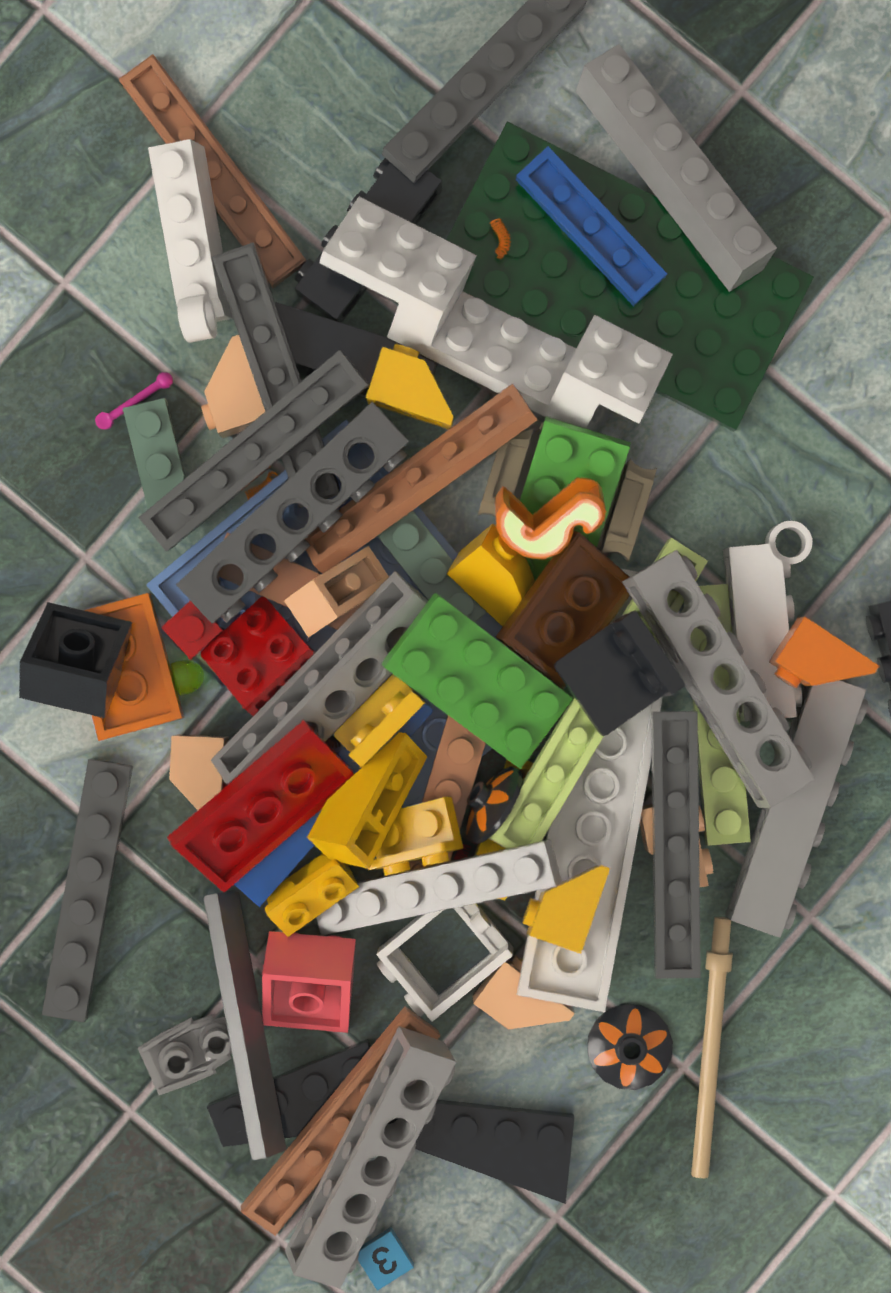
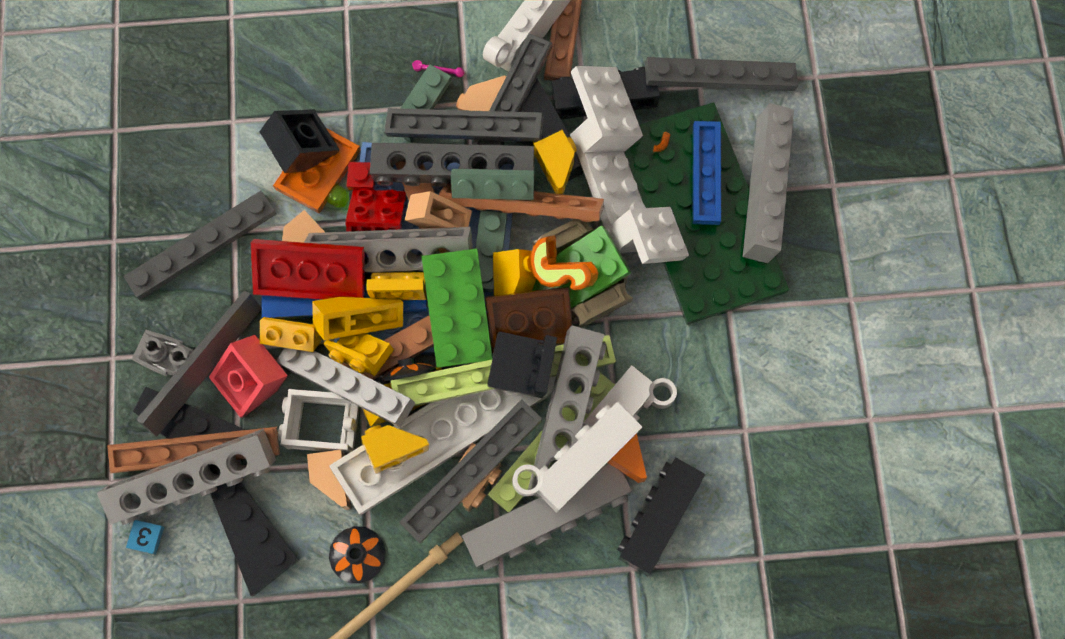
camera: 45 degrees right, 15 degrees down
(370, 495) = (492, 184): none -> sand green plate
(798, 718) = (583, 460): none -> white hinge

